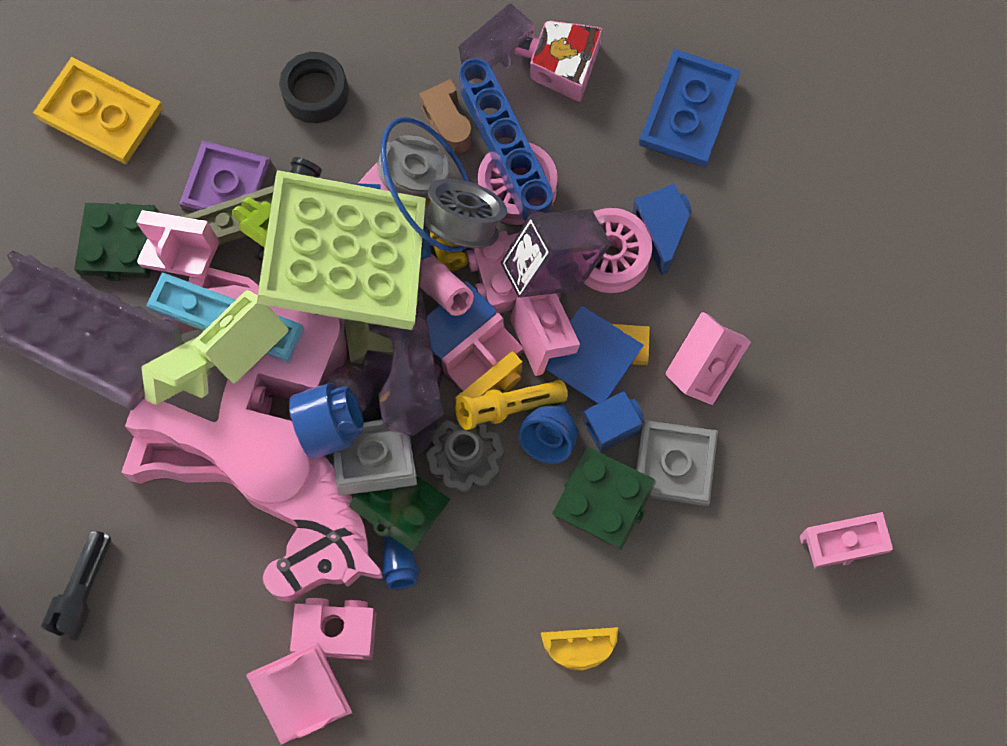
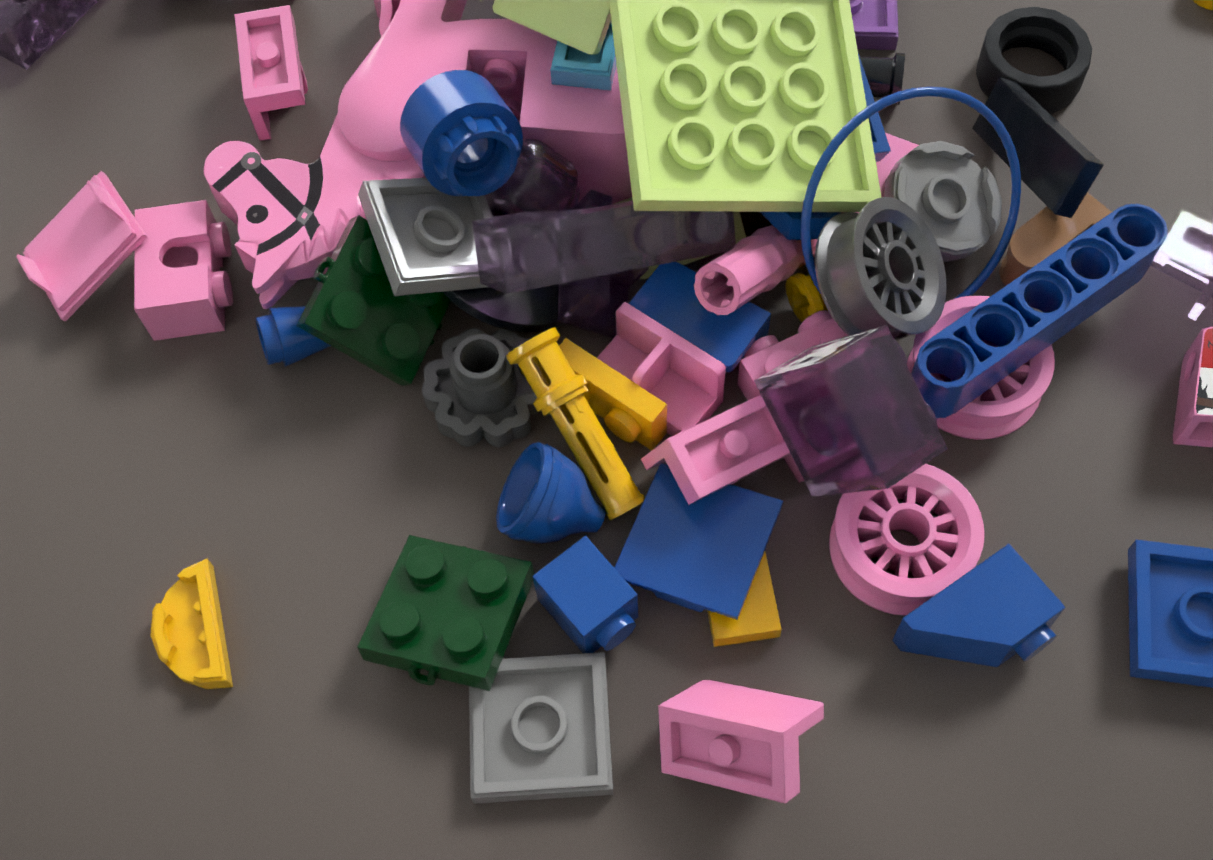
camera: 80 degrees right, 10 degrees down
(186, 553) = (269, 64): none -> bright pink panel
(381, 107) = (1048, 154): none -> black tile

